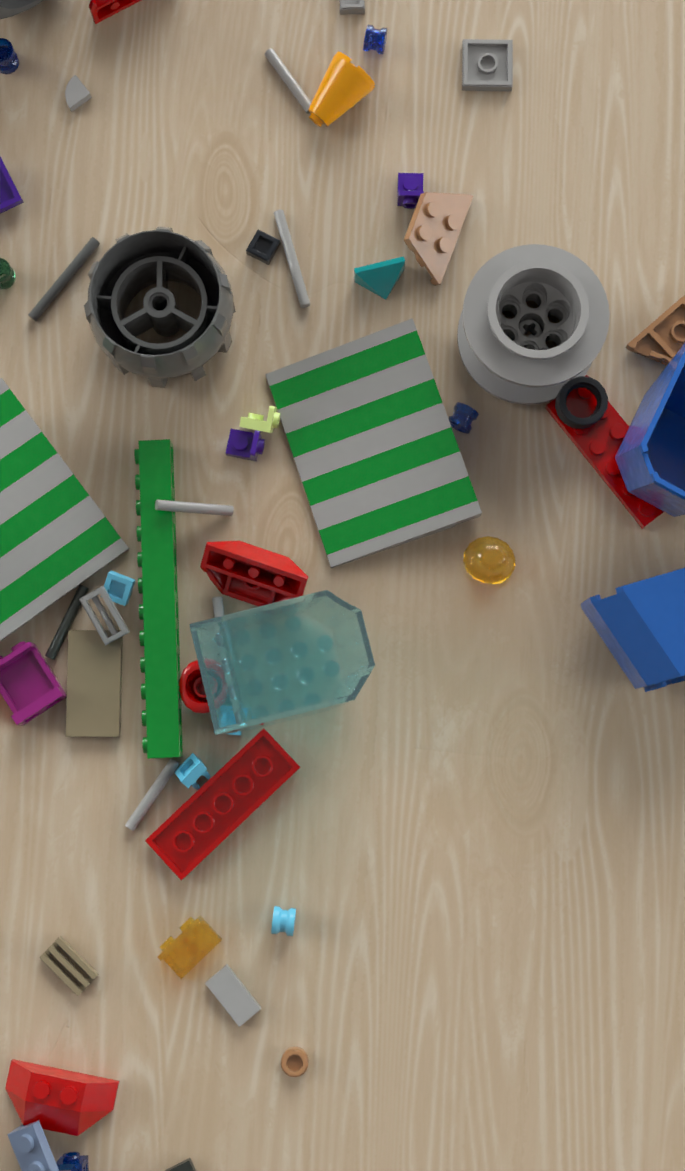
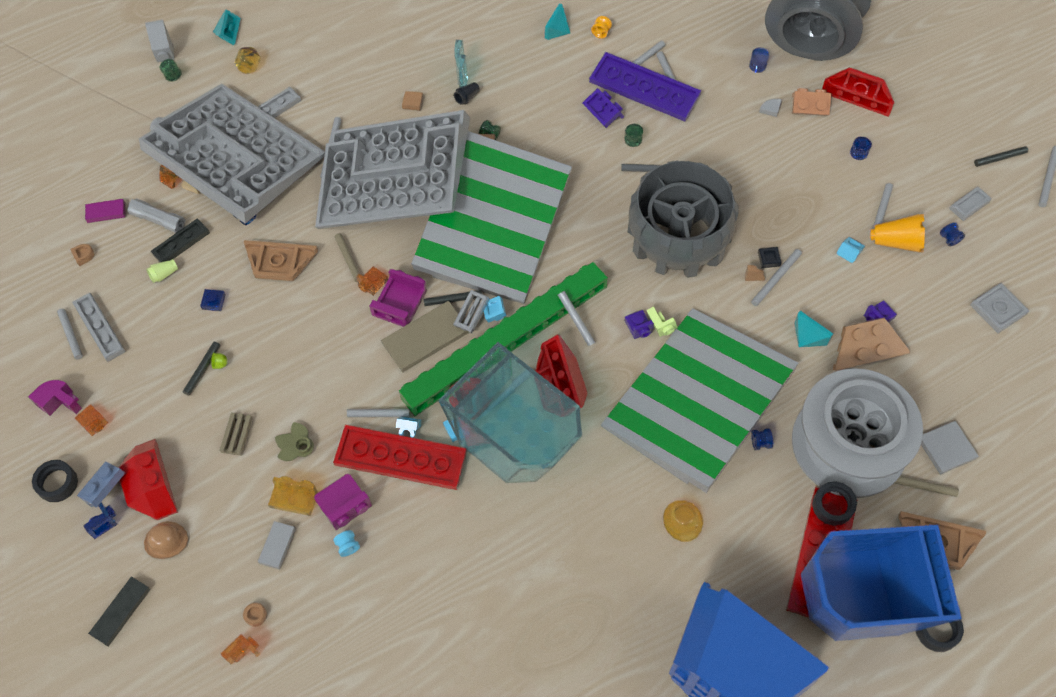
camera: 55 degrees right, 20 degrees down
(104, 46) = (811, 102): none -> nougat bracket
(123, 910) = (291, 443): none -> olive plate
(145, 1112) = (165, 540): none -> medium nougat hat
(201, 36) = (860, 143): none -> clear blue wheel
(232, 896) = (342, 501): none -> magenta bracket
(272, 279) = (754, 274): none -> medium nougat tile
(314, 156) = (850, 249): none -> medium azure slope
(325, 1103) = (237, 649): none -> clear orange bracket
(595, 242) = (948, 447): none -> light grey tile
(628, 287) = (927, 486): none -> dark tan bar

